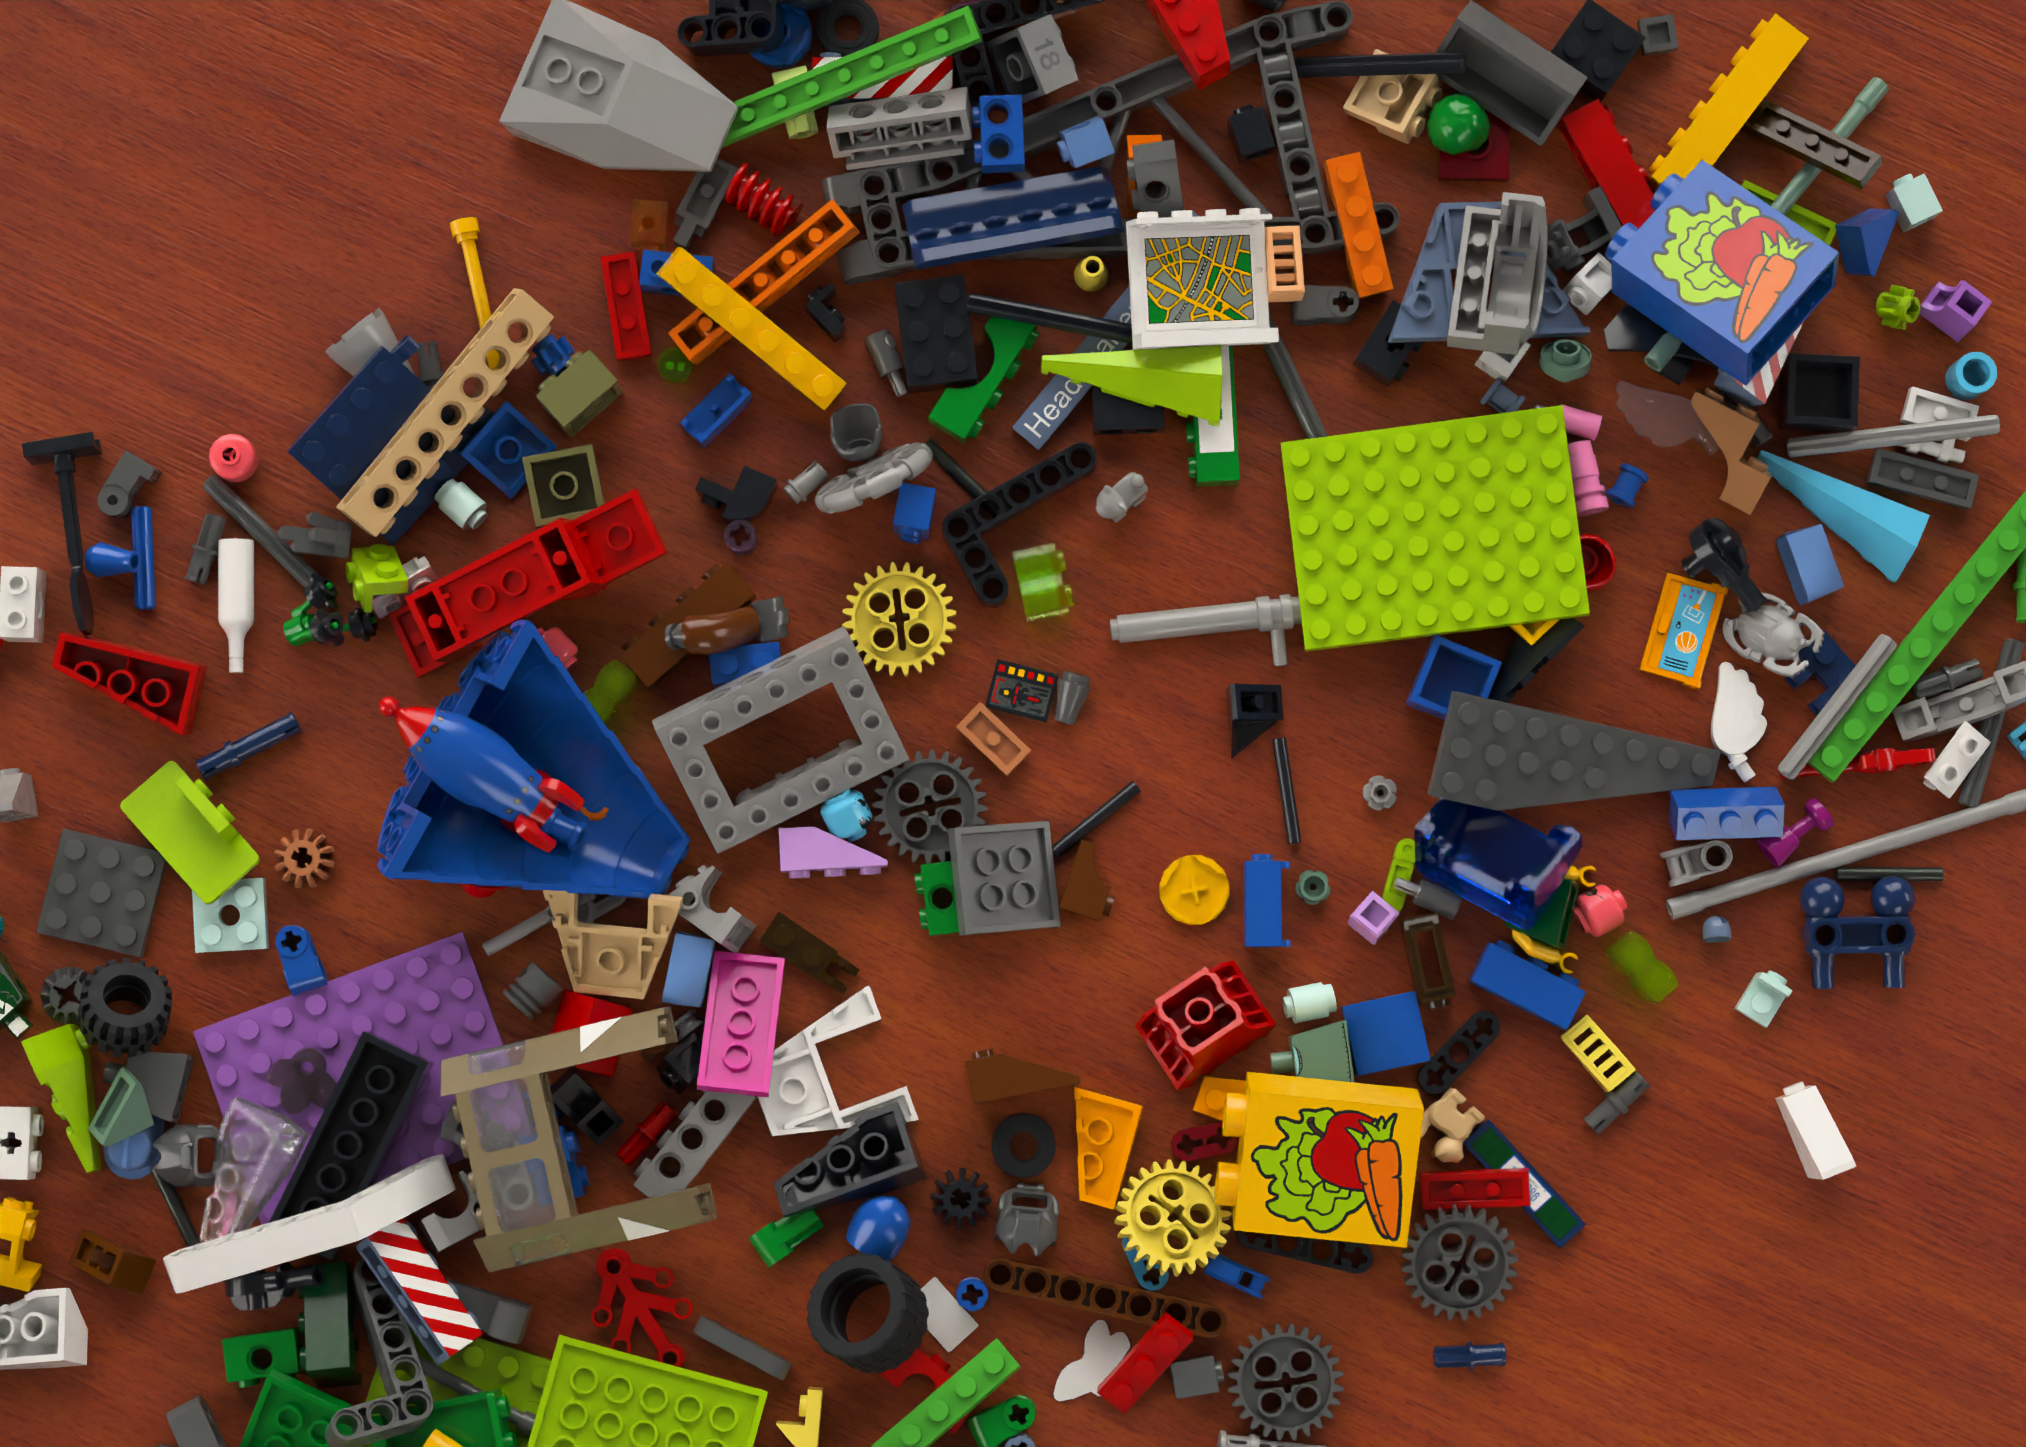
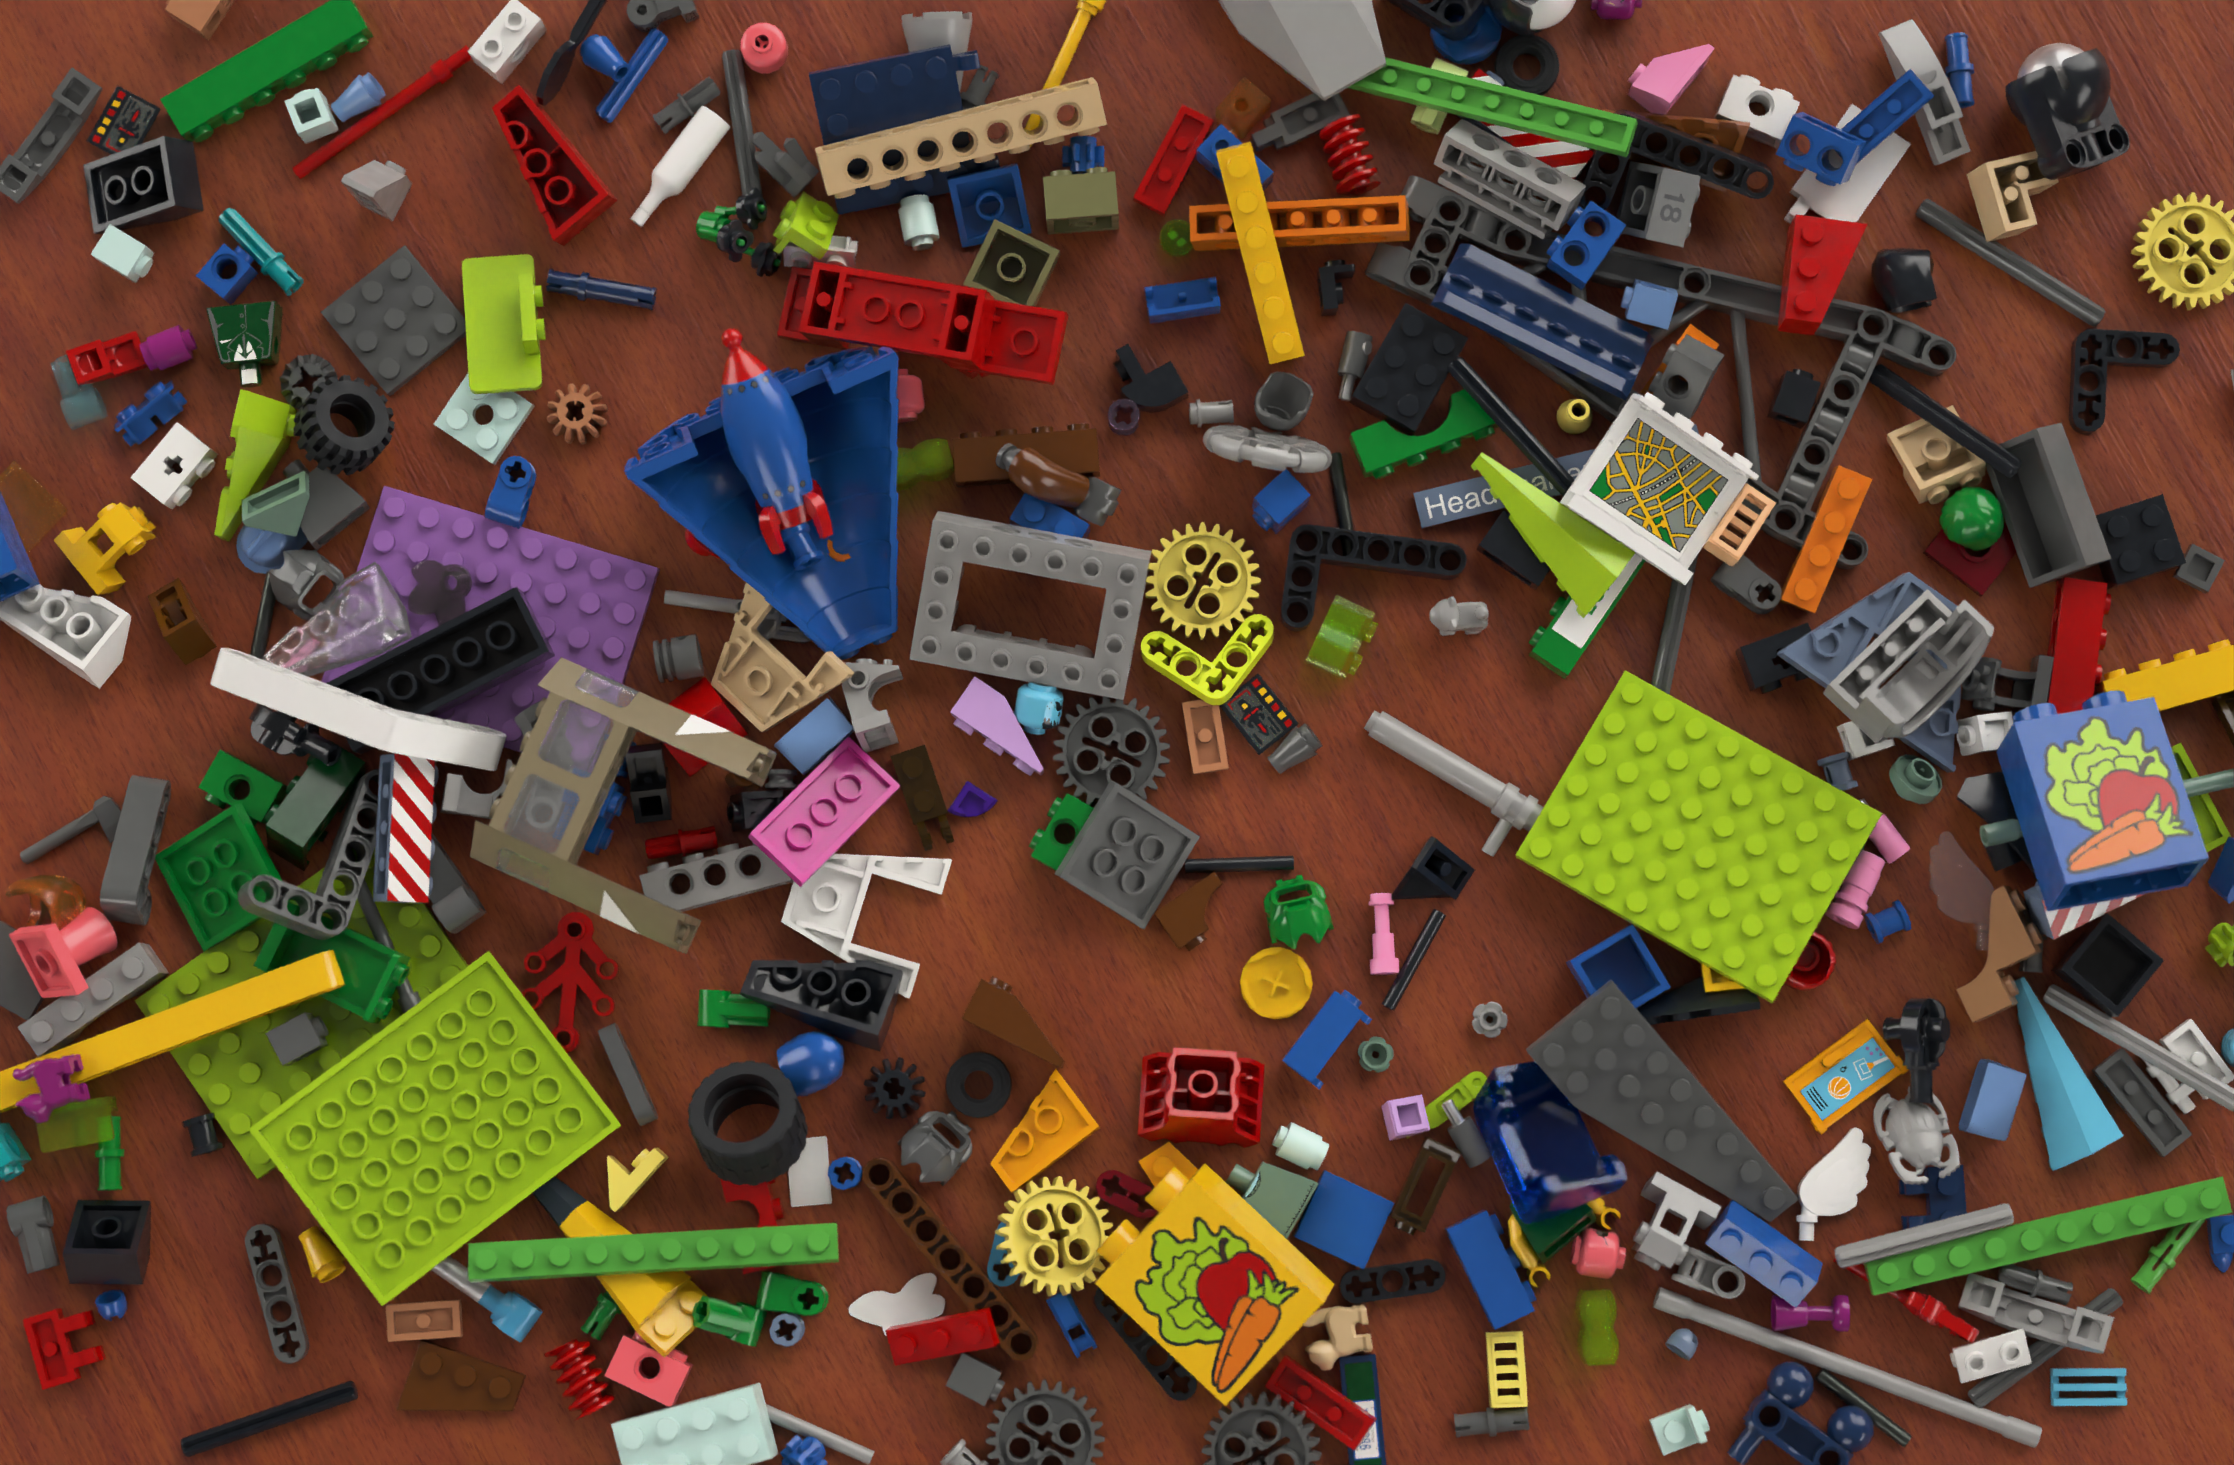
camera: 50 degrees right, 0 degrees up
(850, 928) = (972, 802): none -> dark purple tile
(956, 687) = (1208, 671): none -> neon yellow beam
(1170, 829) = (1297, 916): none -> green helmet
(1252, 794) = (1383, 941): none -> bright pink piece
(1640, 869) = (1659, 1246): none -> light grey tile

